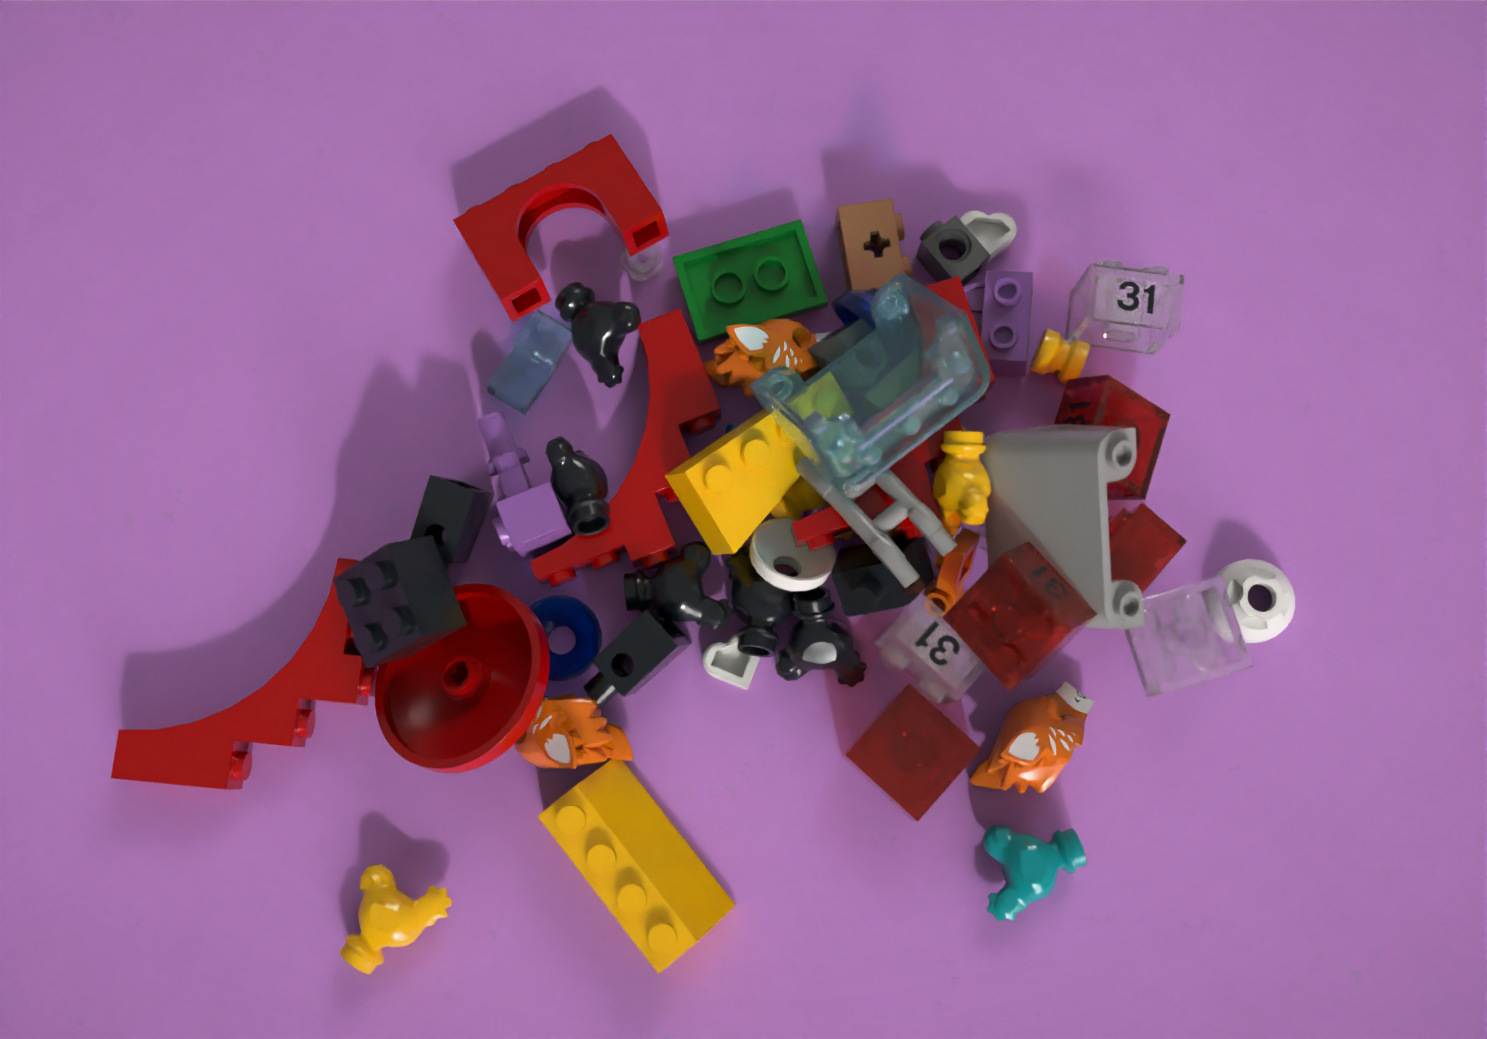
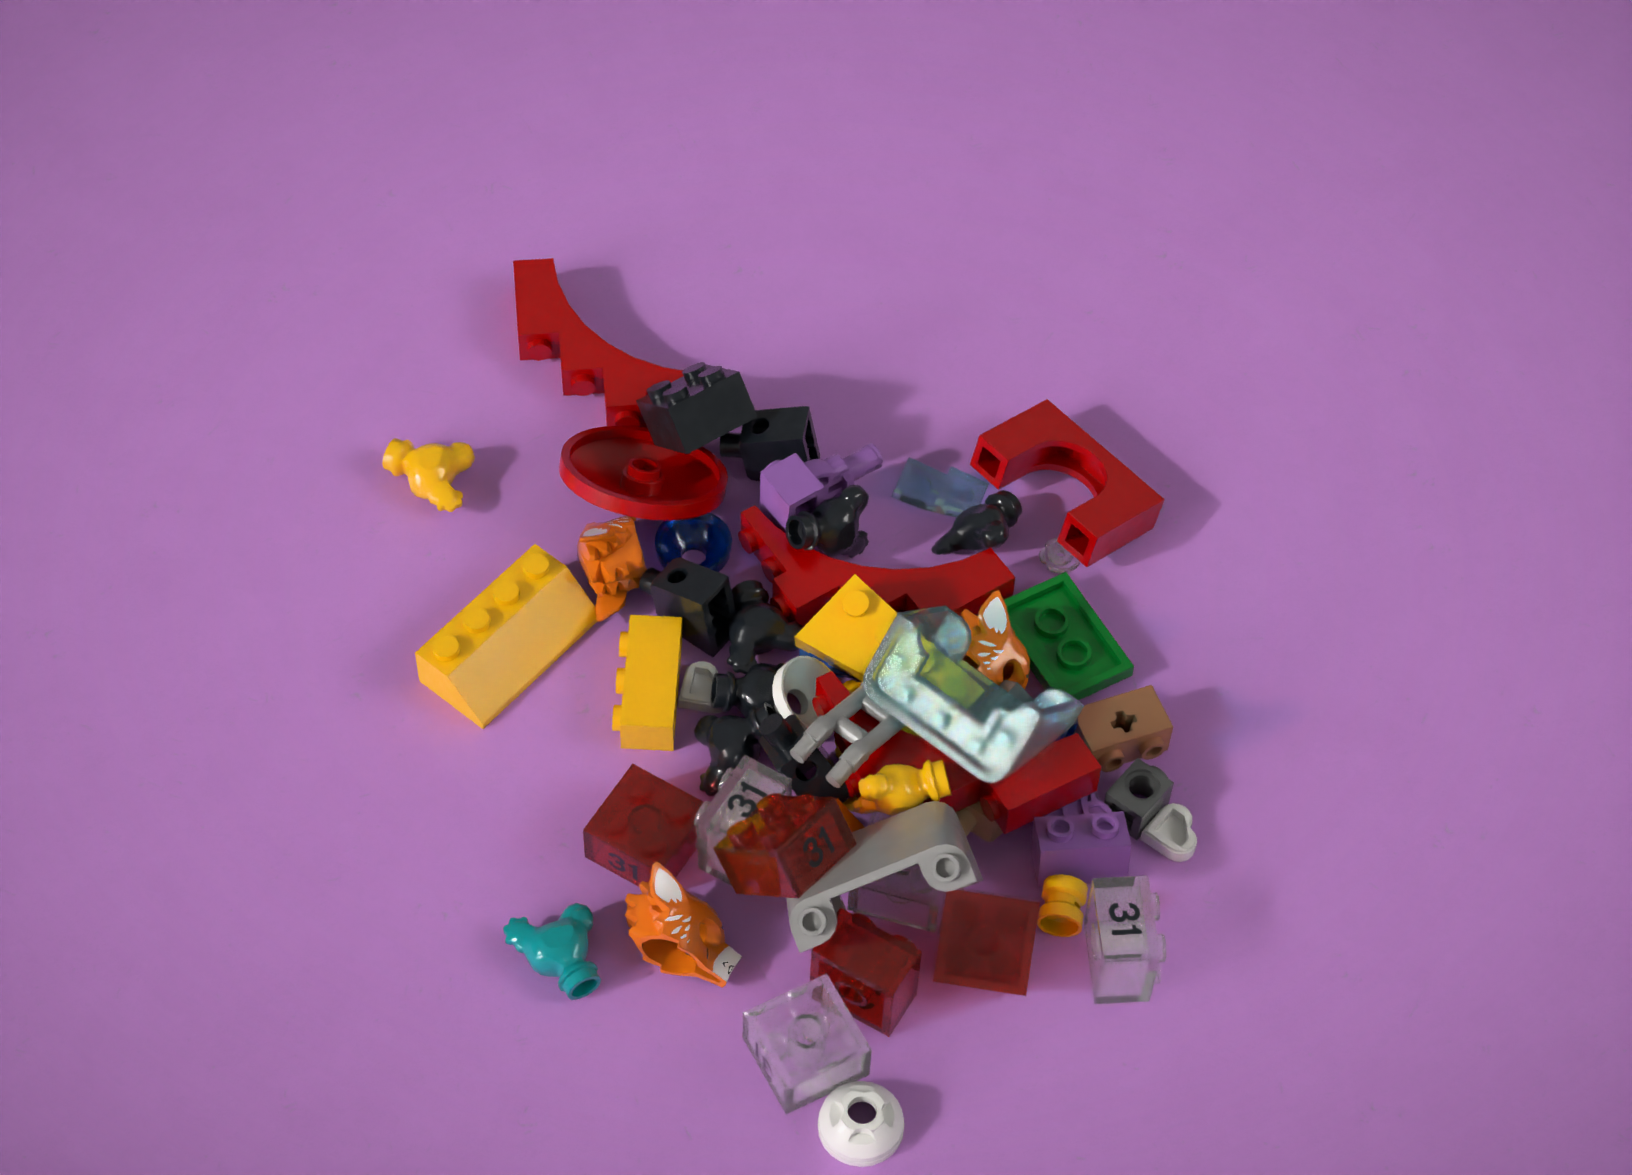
camera: 80 degrees right, 25 degrees down
(724, 717) = (648, 682): none -> yellow brick

